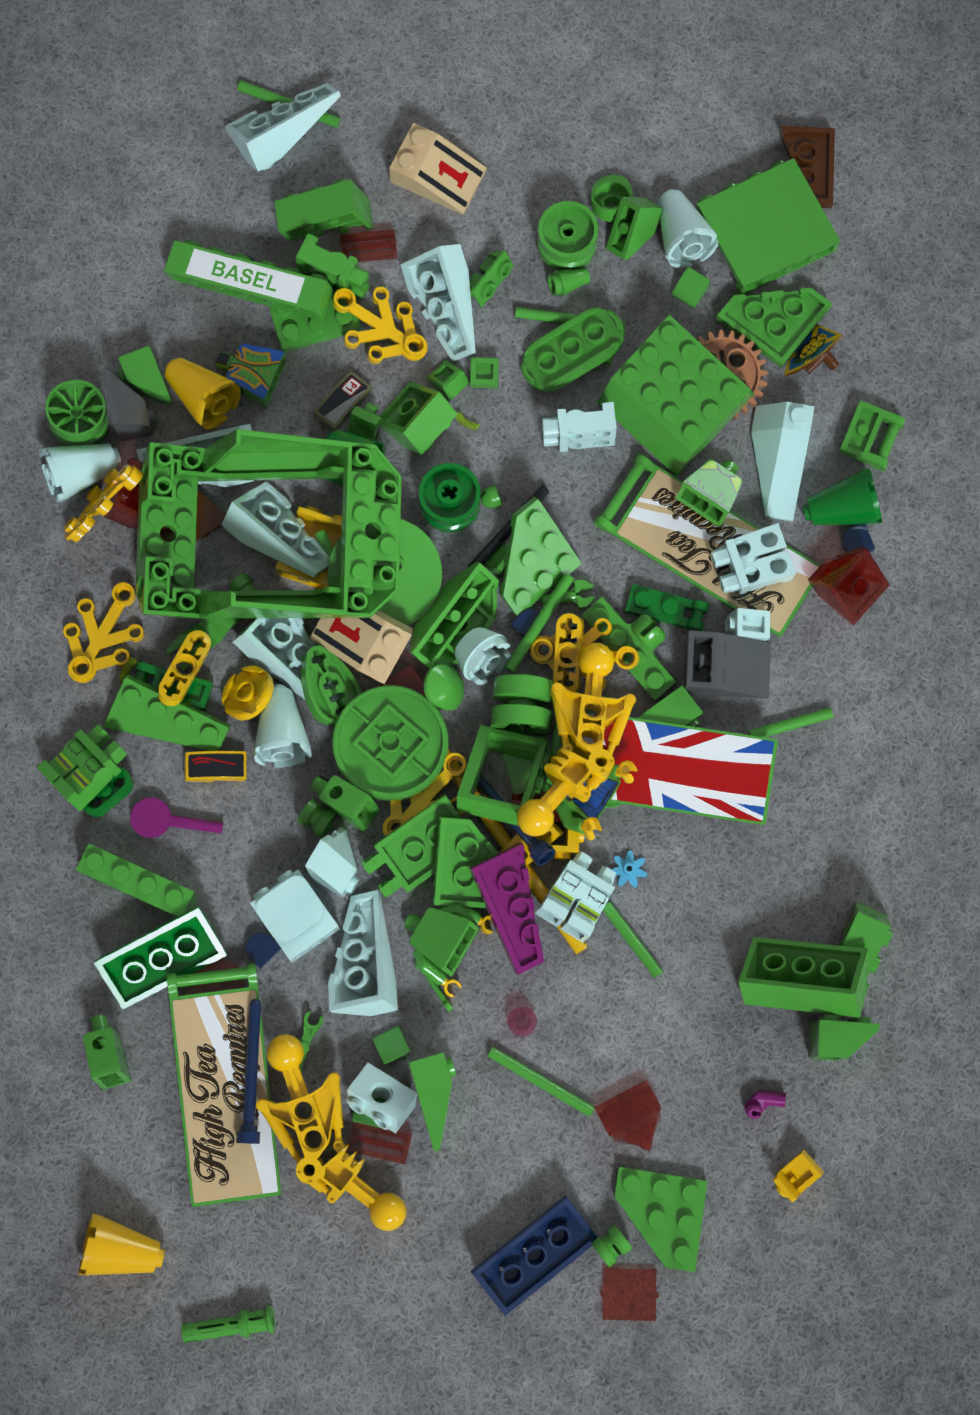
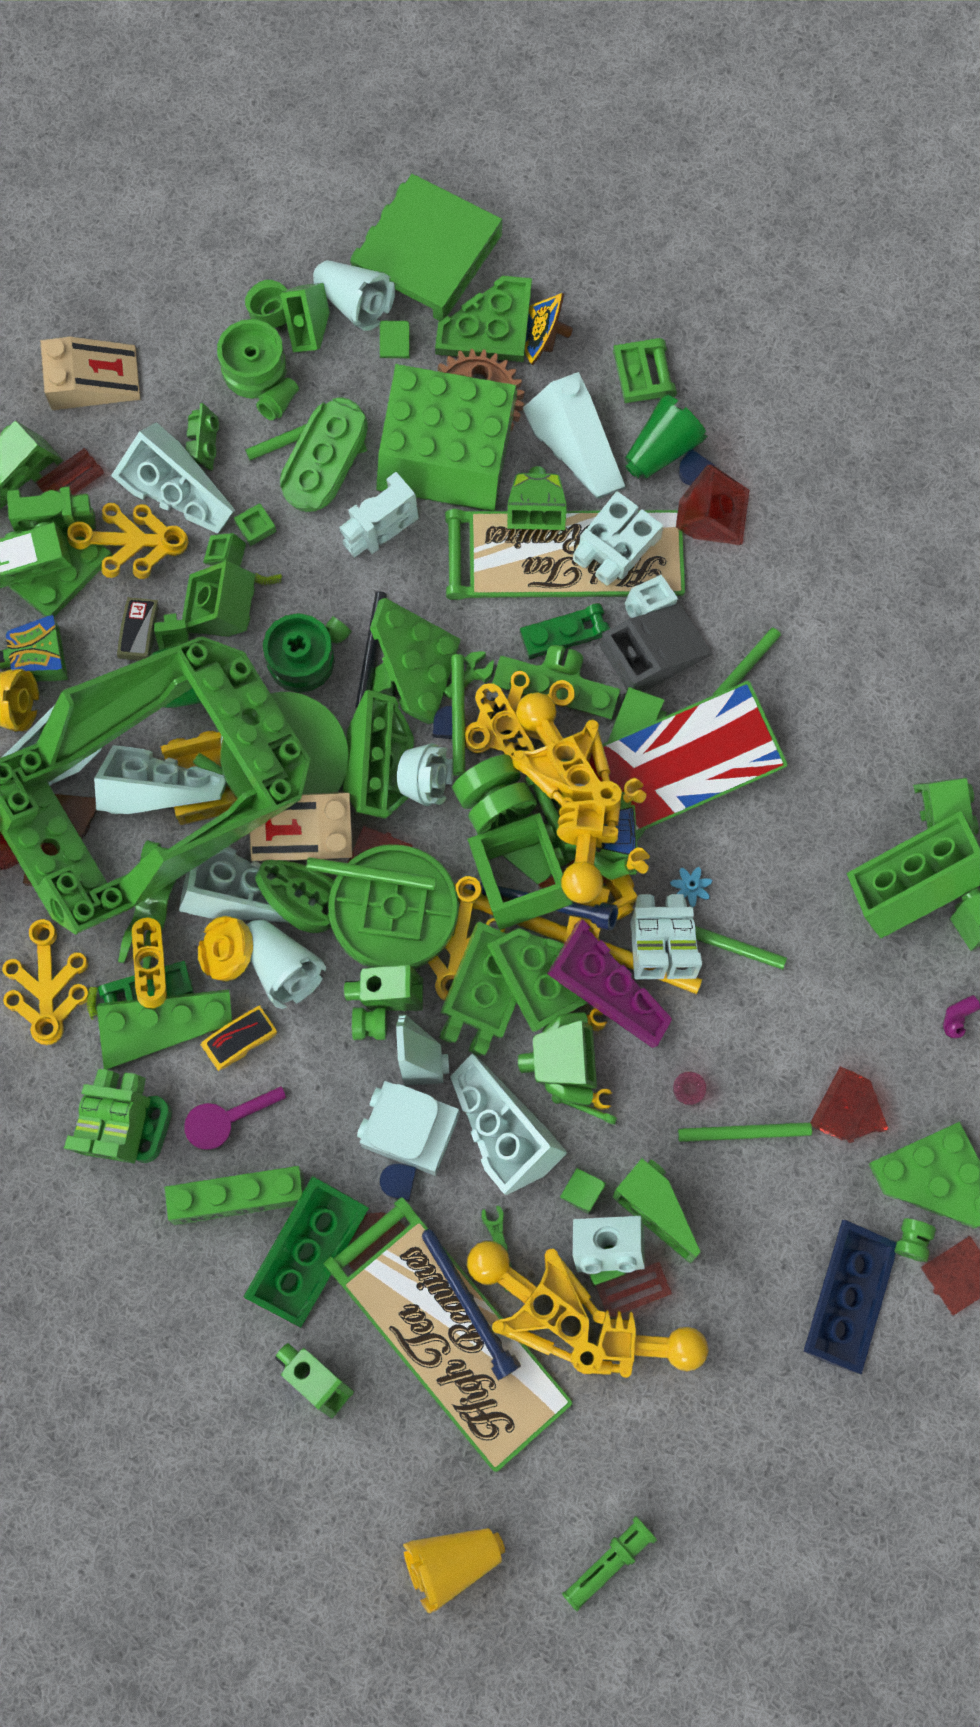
camera: 30 degrees left, 5 degrees down
(391, 708) = (371, 873): none -> bright green bar
(444, 687) = (410, 825): bright green hat -> none
(815, 157) = (427, 160): reddish brown wing -> none

